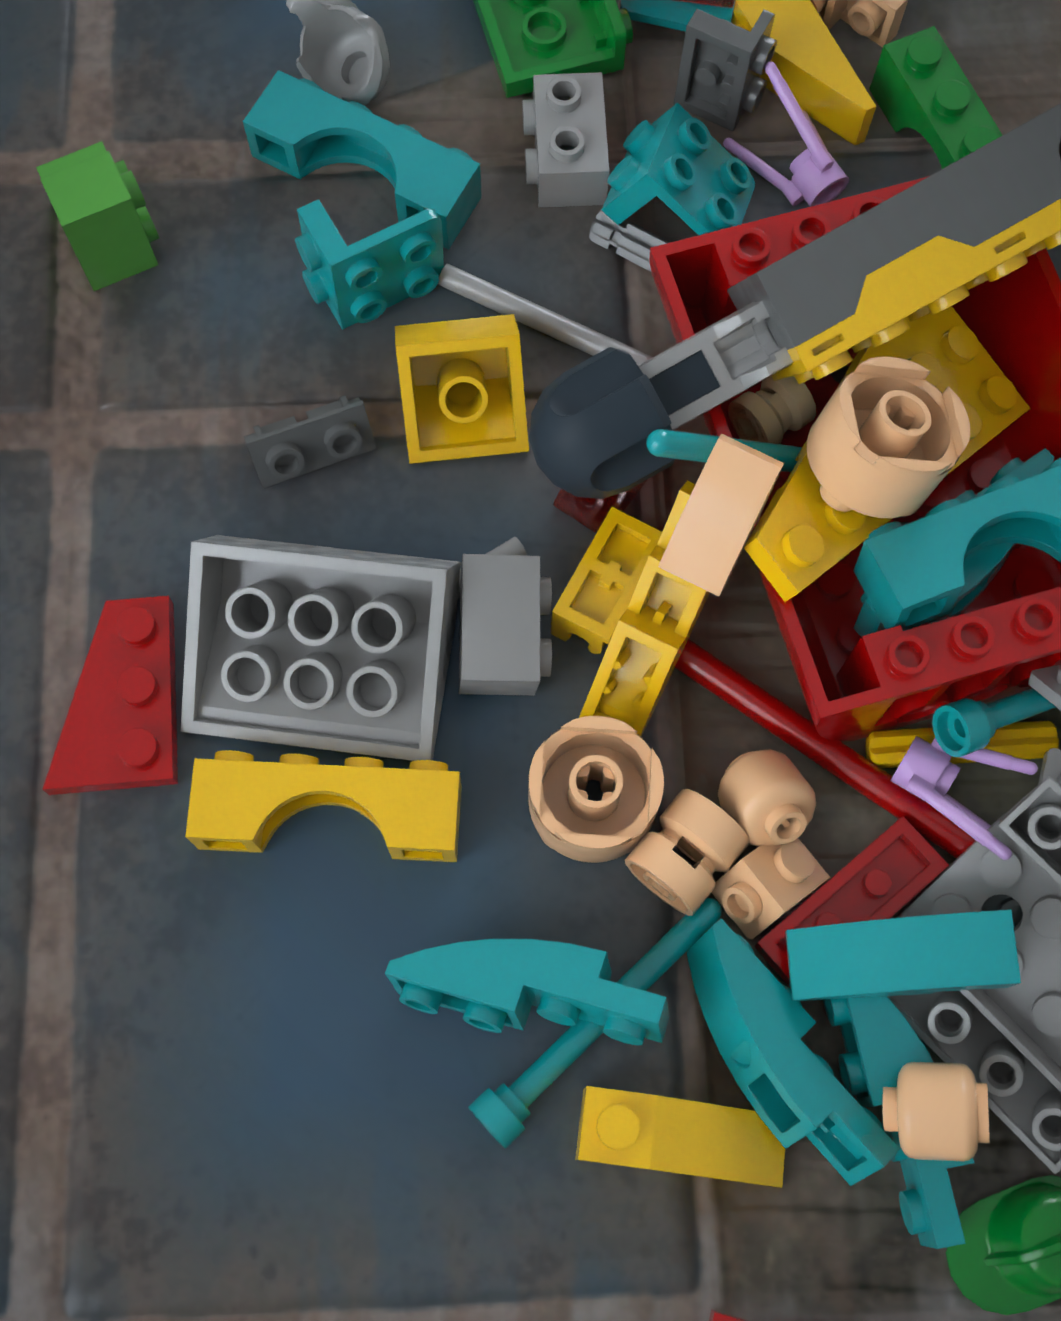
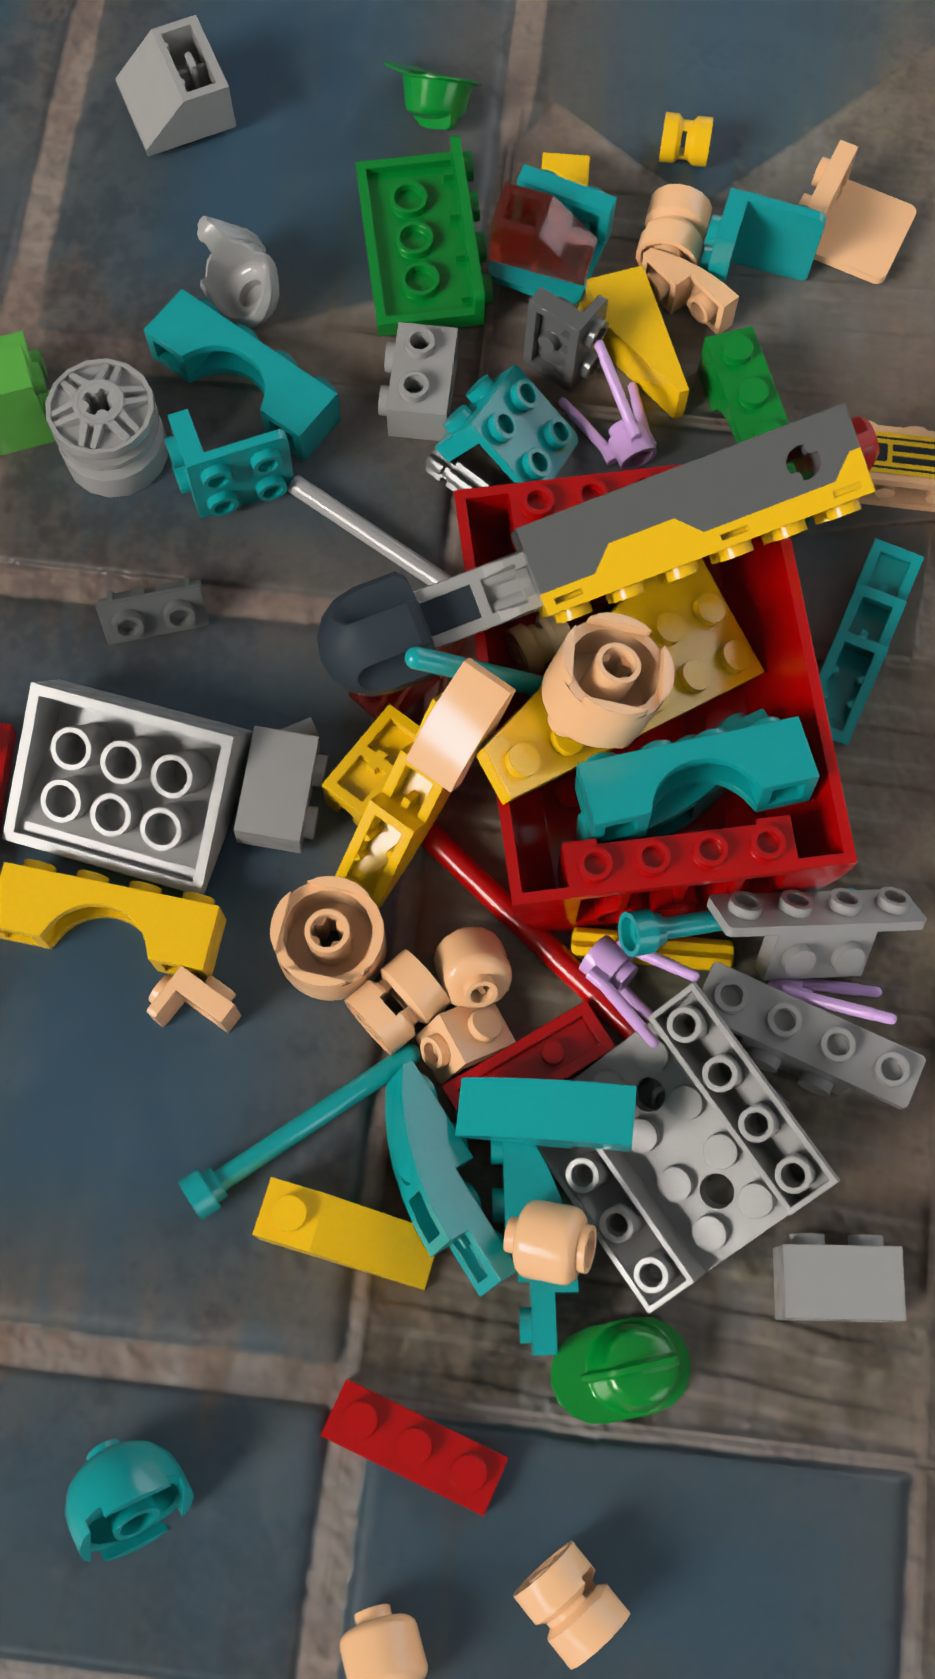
camera: 10 degrees right, 0 degrees up
(220, 237) = (107, 427): none -> light grey wheel
(462, 388) = (284, 581): yellow slope -> none
(463, 882) = (209, 998): none -> light nougat bracket
(503, 978) = (231, 1081): teal slope -> none

